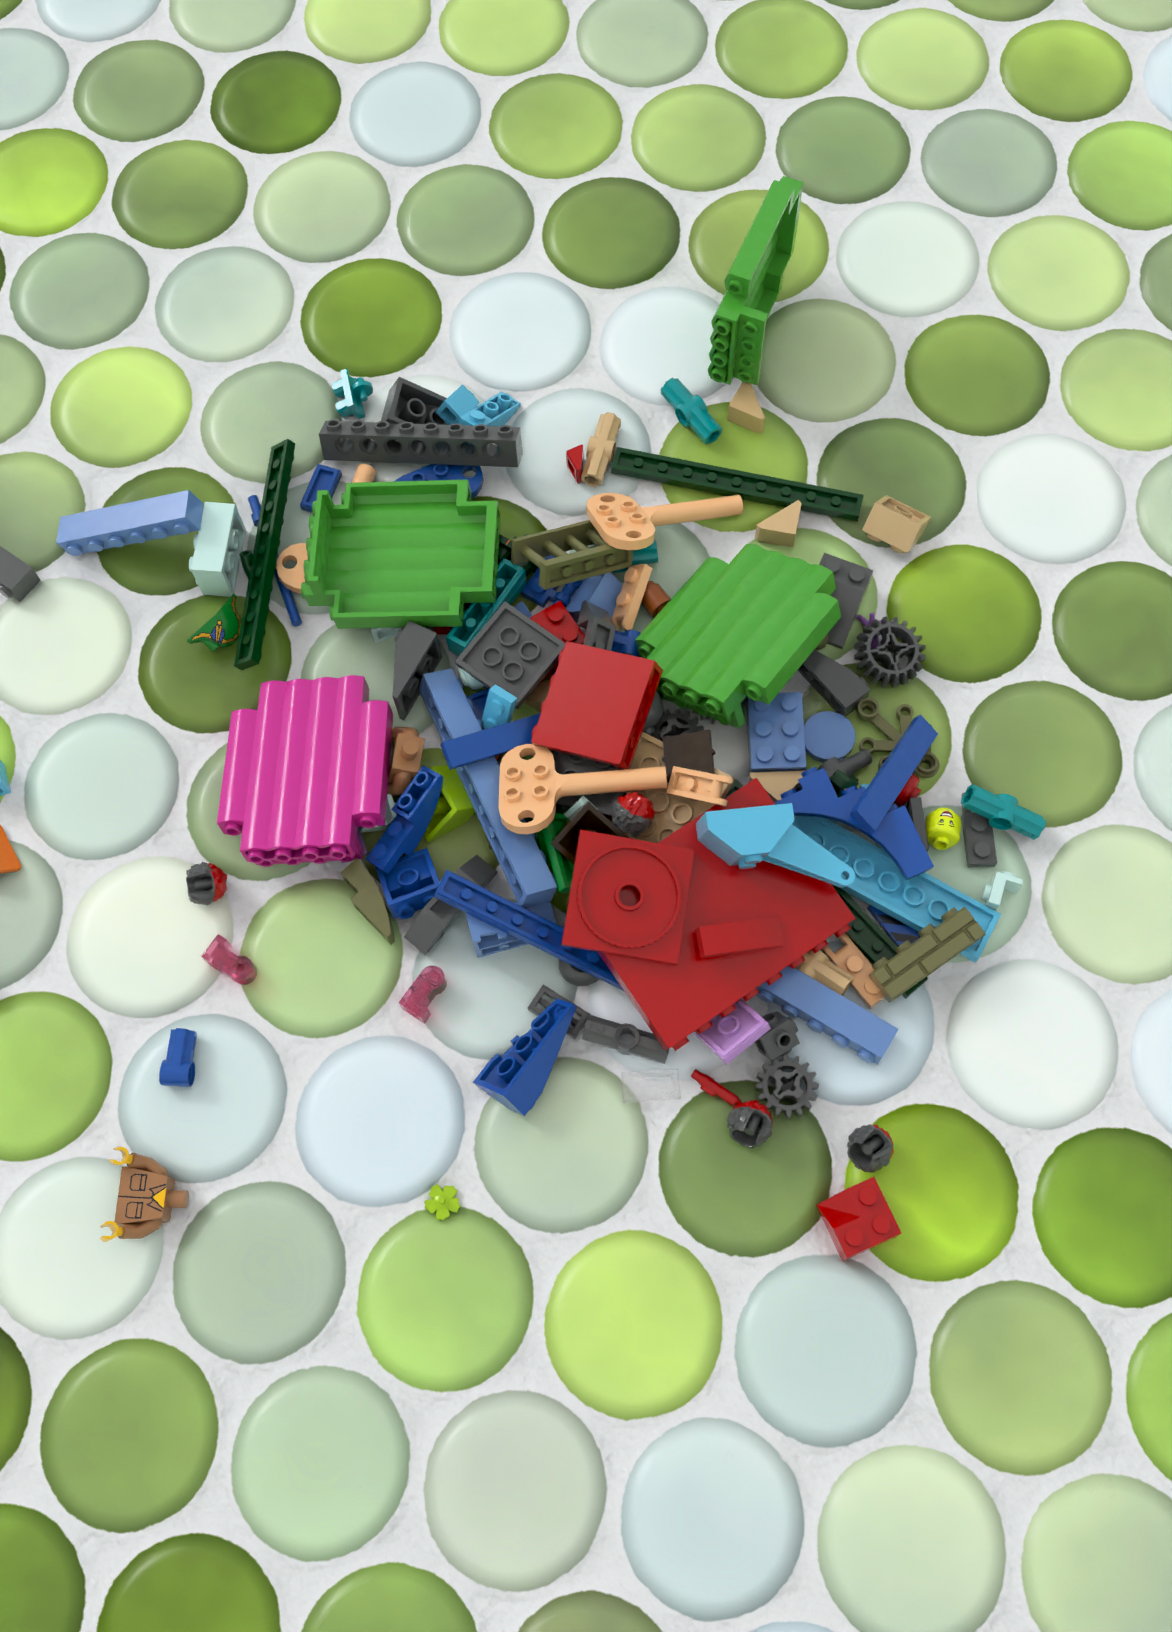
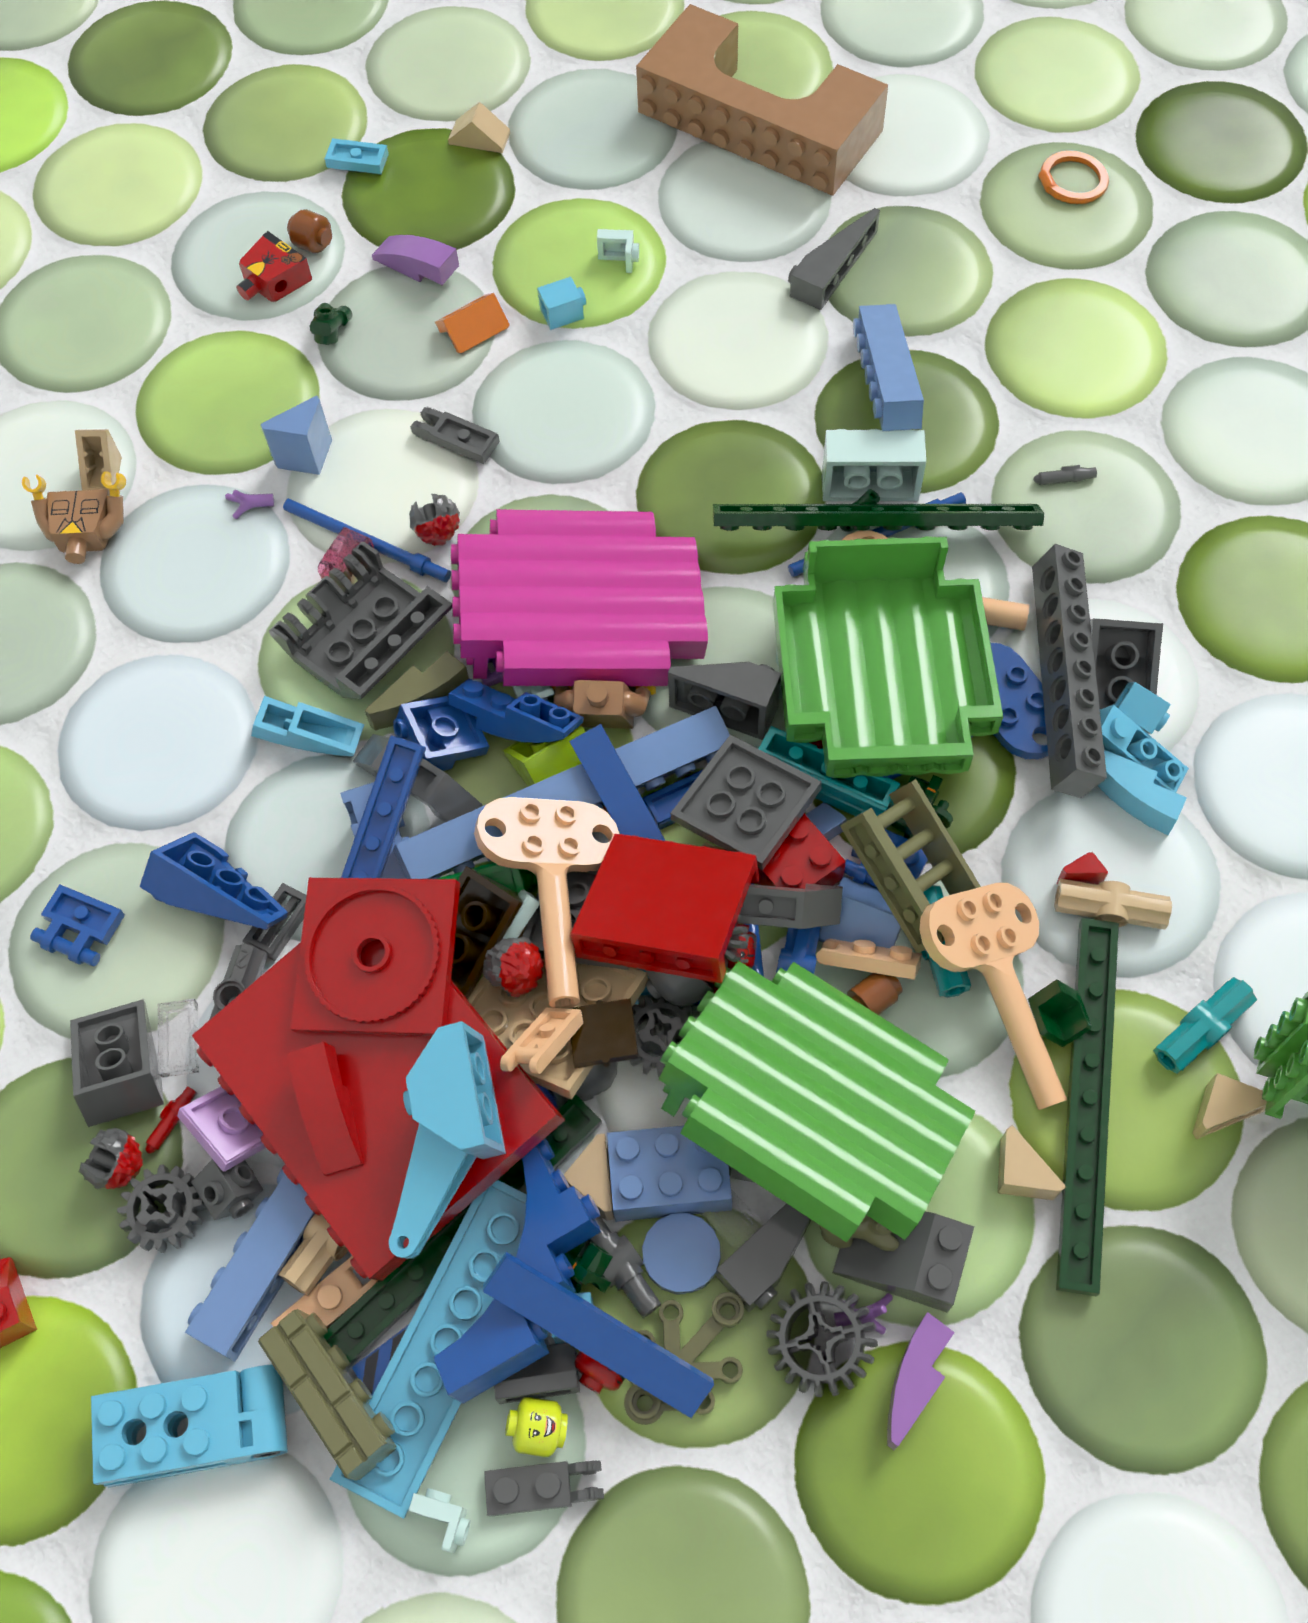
camera: 85 degrees right, 5 degrees down
(83, 1185) = (96, 455): none -> tan slope
(101, 993) = (299, 437): none -> medium blue slope
(113, 869) = (456, 434): none -> dark grey hinge
(149, 1047) = (249, 501): none -> medium lavender bar
(179, 1065) = (222, 528): blue piece -> none
(221, 629) = (769, 486): green hat -> none
(241, 902) = (418, 563): none -> blue bar
(242, 425) = (1069, 473): none -> dark grey piece
(305, 941) = (358, 627): none -> dark grey slope
(323, 479) = (991, 570): blue tile -> none
(355, 393) = (1138, 585): teal hips -> none
(389, 989) = (306, 728): none -> medium azure slope
(422, 992) = (302, 762): clear pink leg -> none
(442, 1201) = (55, 815): lime plant -> none
(498, 707) = (667, 796): medium azure plate -> none
(528, 415) = (1134, 791): none -> medium azure slope
(541, 1166) = (82, 915): none -> blue plate
(668, 1129) = (114, 1063): none -> dark grey slope
(680, 487) = (1059, 1013): none -> dark green panel
(870, 1148) = (68, 1322): dark grey piece -> none
(895, 524) = (1058, 1350): tan slope -> none
(914, 603) = (916, 1378): none -> medium lavender slope
(936, 1028) = (229, 1417): none -> medium azure hinge
(1003, 811) = (560, 1521): teal piece -> none

